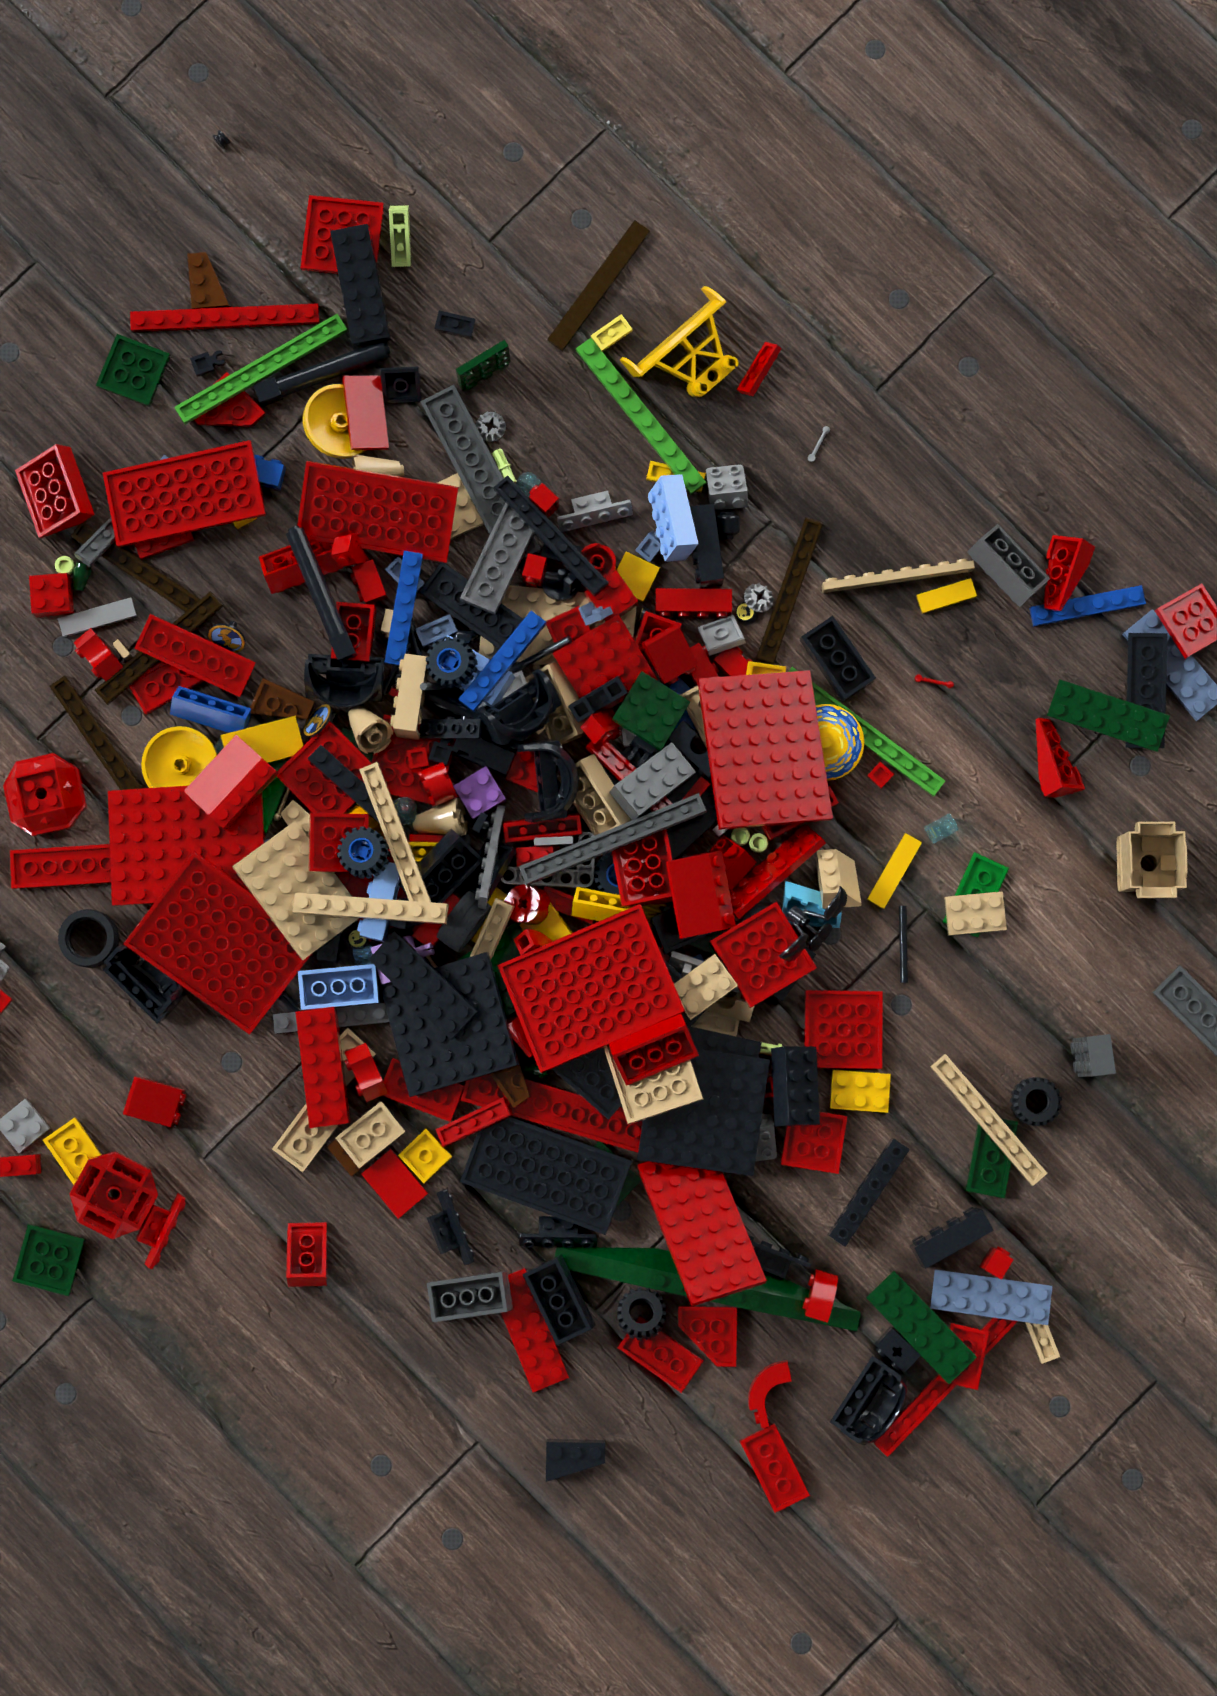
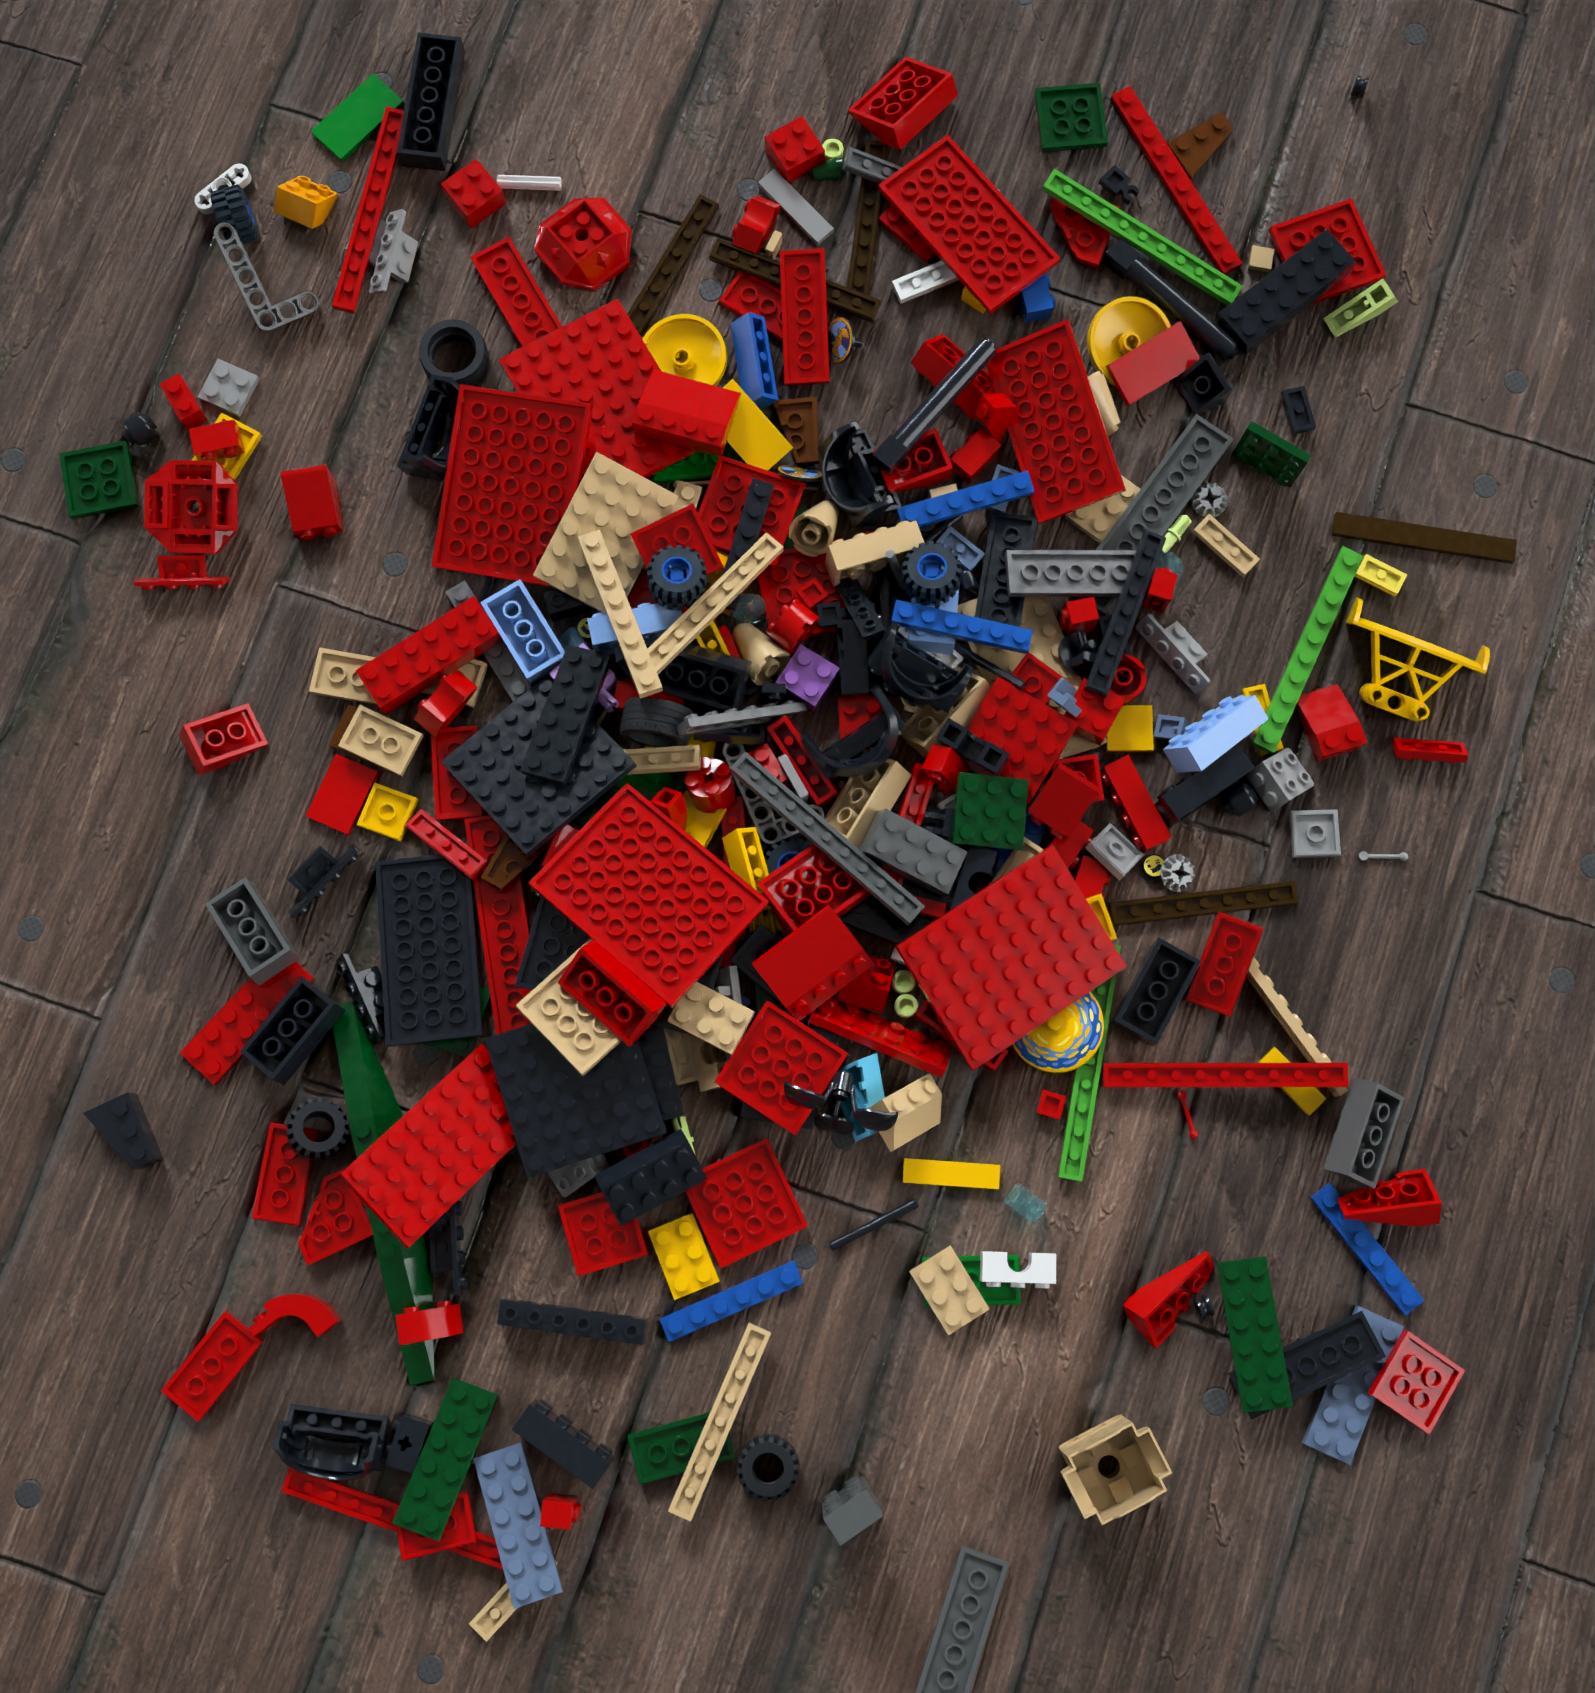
camera: 65 degrees right, 5 degrees down
(23, 1209) = (139, 428): none -> black head
(67, 1153) = (217, 441): none -> red brick
(209, 551) = (923, 281): none -> white plate
(321, 287) = (1260, 258): none -> tan tile
(532, 433) = (1226, 545): none -> tan plate
(702, 429) = (1330, 723): none -> red slope
(778, 483) = (1314, 833): none -> light grey tile
(842, 599) = (1224, 964): none -> red tile
(908, 1072) = (731, 1301): none -> blue plate
(920, 641) = (1225, 1075): none -> red plate
(993, 842) = (995, 1269): none -> white arch
(1072, 740) = (1203, 1307): none -> black bush

